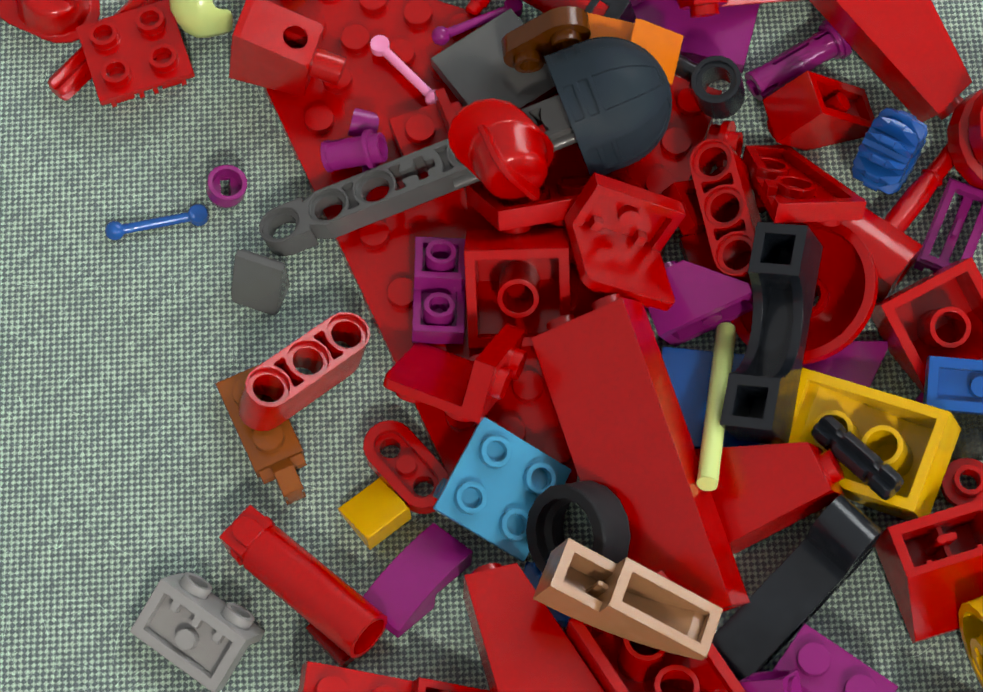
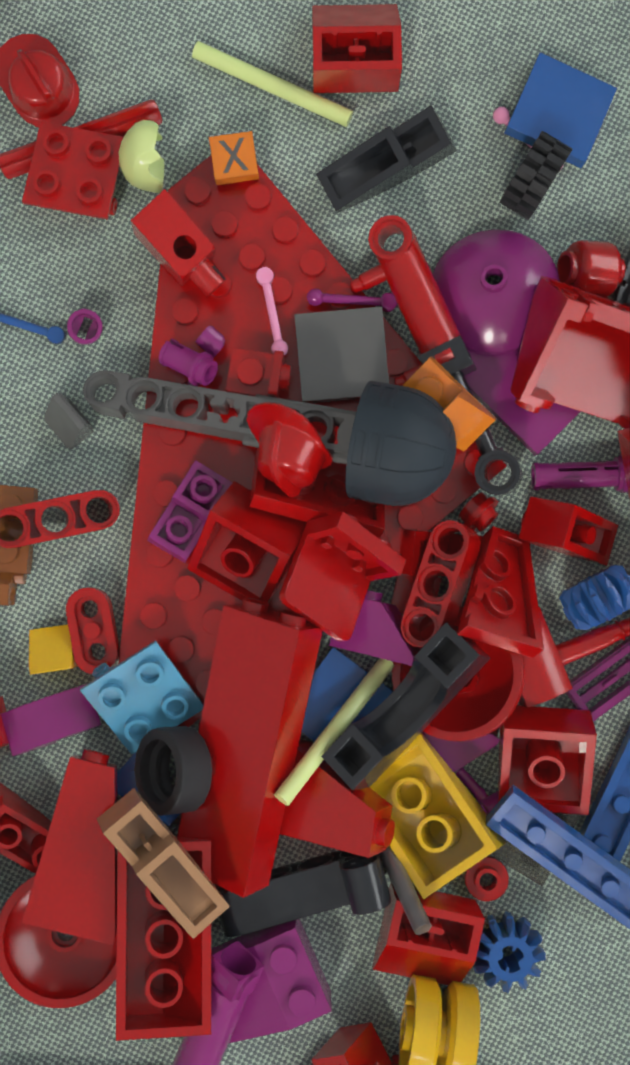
camera: 30 degrees right, 20 degrees up
(456, 384) = (152, 600): red bracket -> none
(544, 35) = (392, 363): reddish brown plate -> none
(857, 457) = (409, 834): black axle -> none
(894, 512) = (406, 892): none -> flat silver bar

